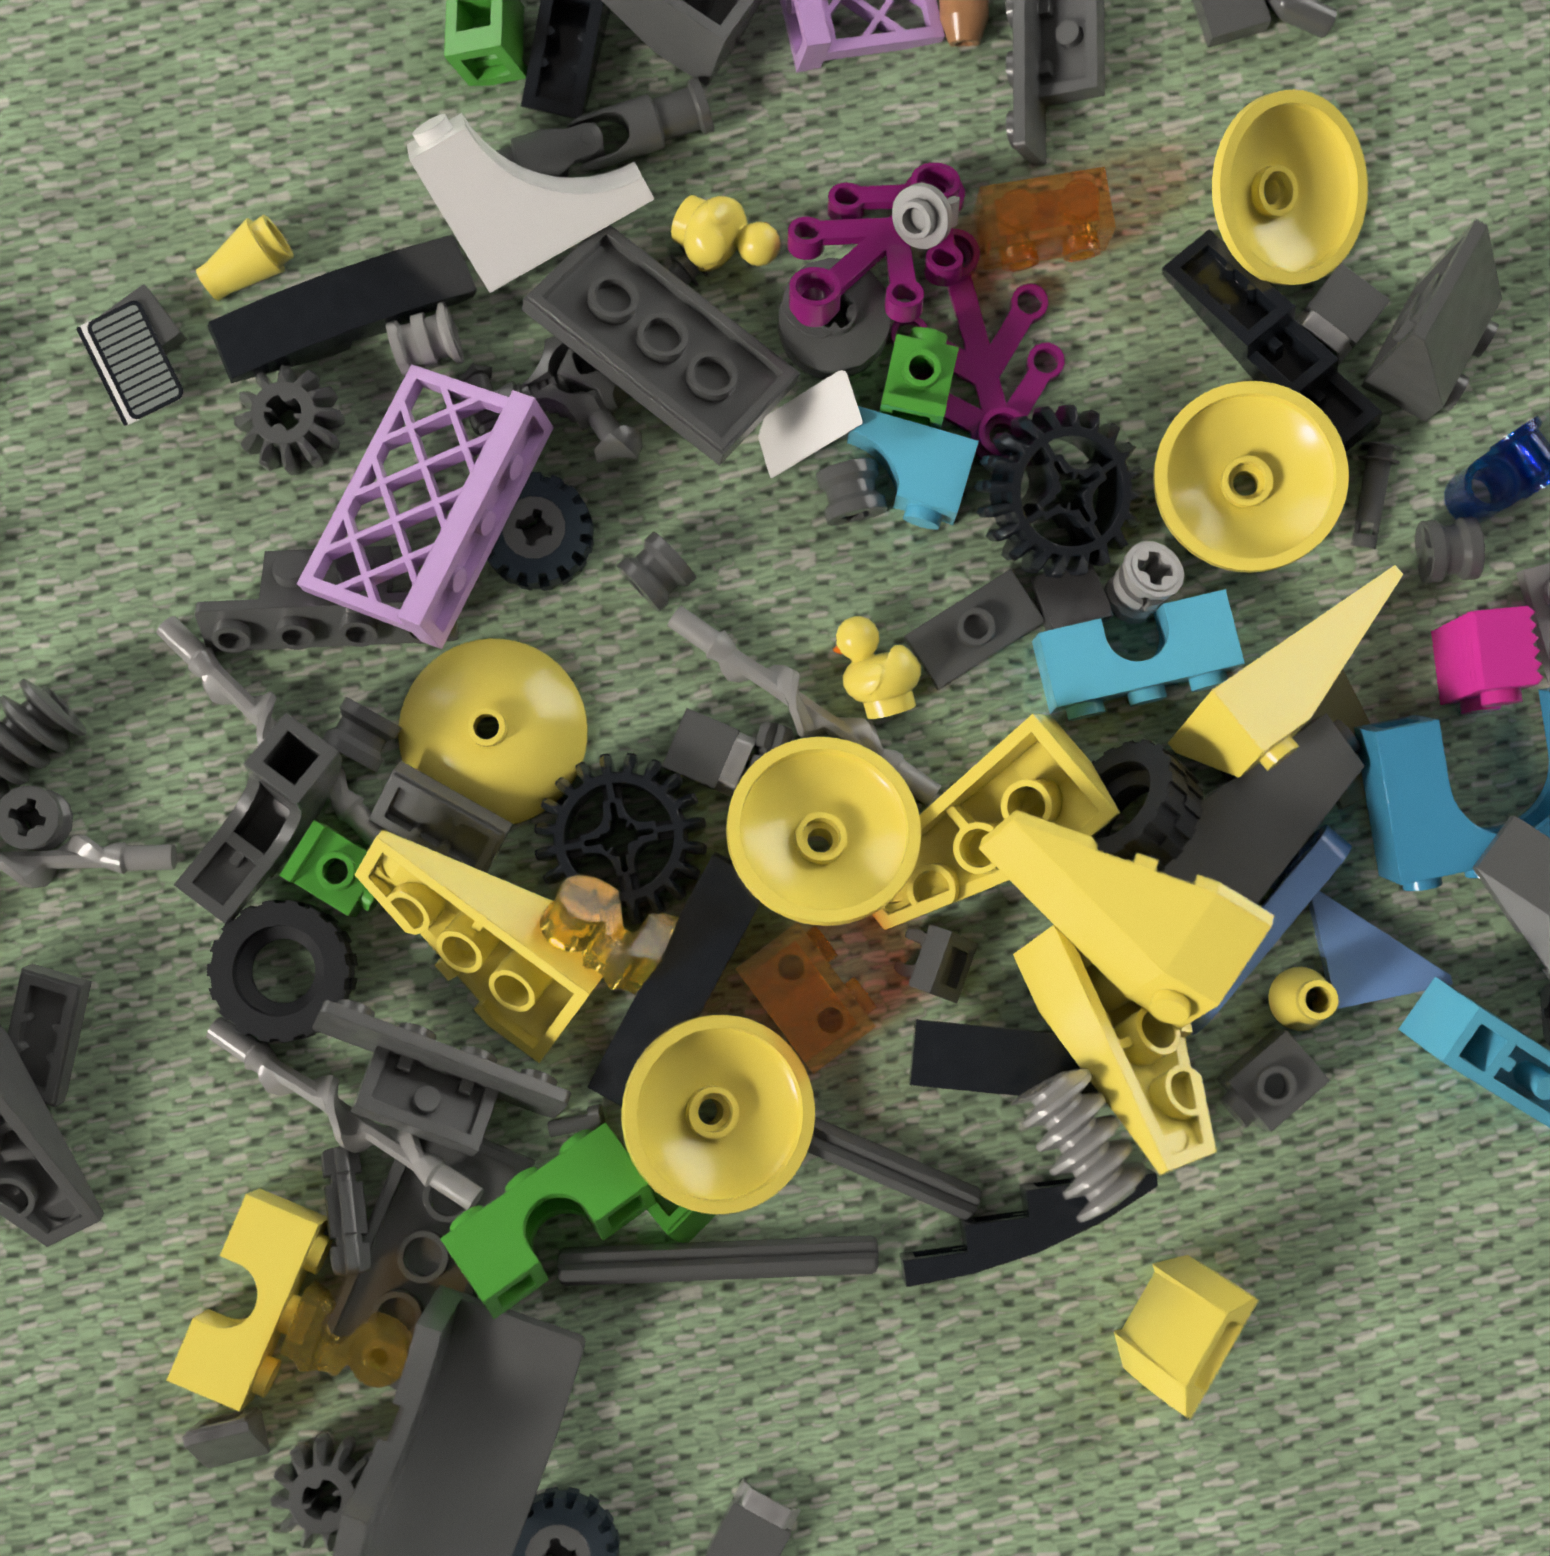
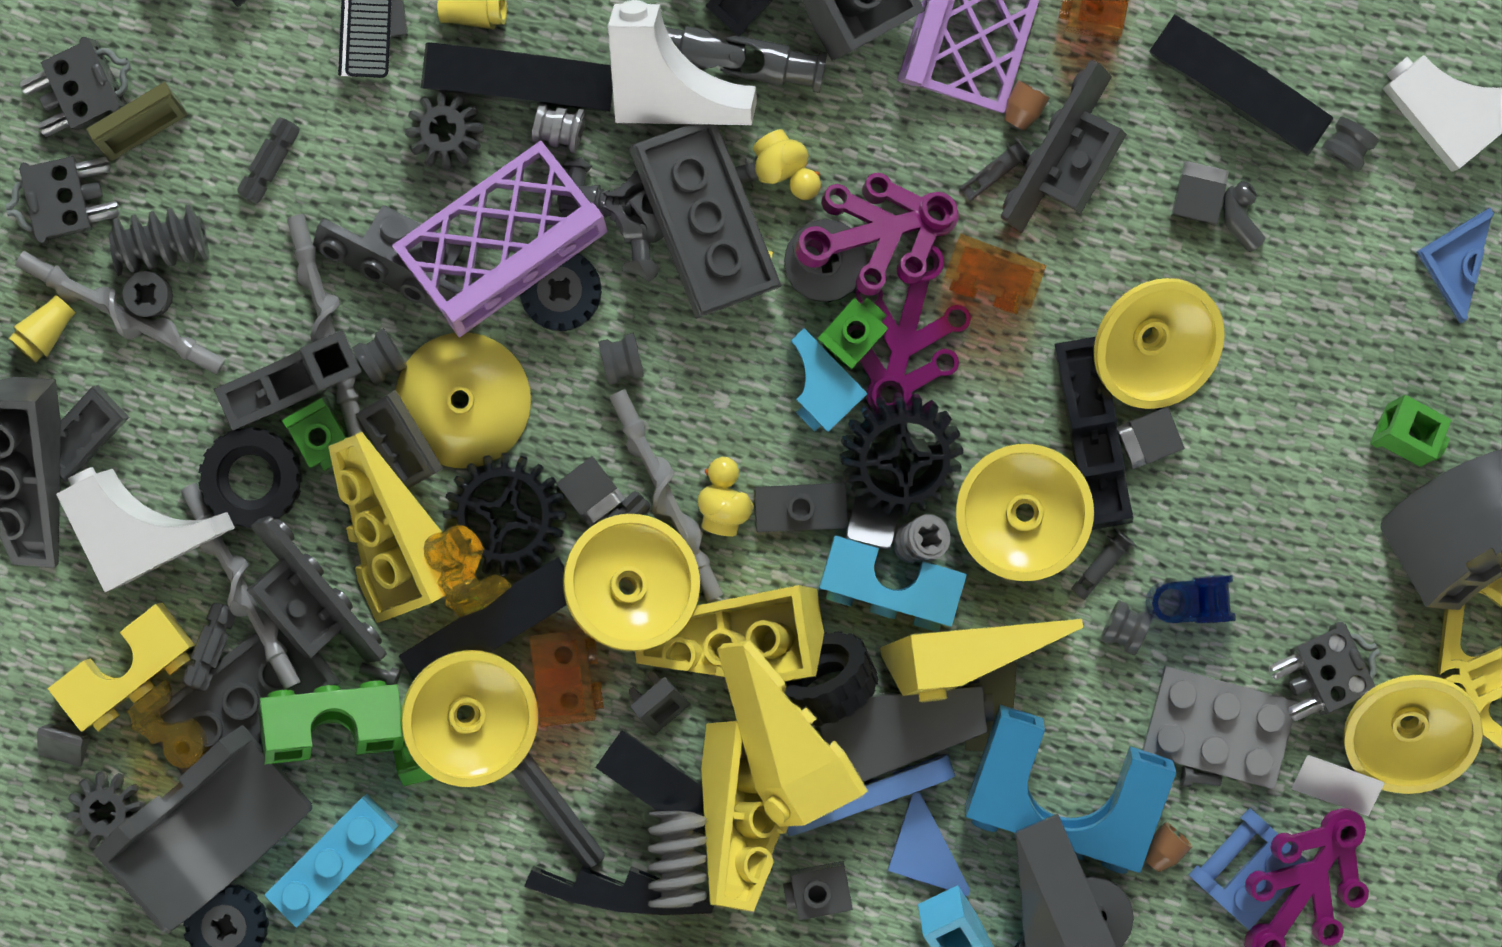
camera: 30 degrees right, 5 degrees up
(96, 576) = (268, 160): none -> dark grey axle
(161, 1131) = (123, 534): none -> white arch
(645, 1394) = (331, 860): none -> medium azure arch
(718, 1260) = (419, 806): dark grey axle -> none
(809, 423) = (770, 319): white sticker -> none
(851, 491) = (772, 377): dark grey wheel -> none
(924, 215) = (914, 233): light grey plate -> none
(985, 78) = (996, 169): none -> dark grey piece
(1289, 994) = (869, 839): light yellow cone -> none
(1440, 329) = (1196, 489): dark grey slope -> none
(1486, 658) = (1100, 710): dark pink brick -> none

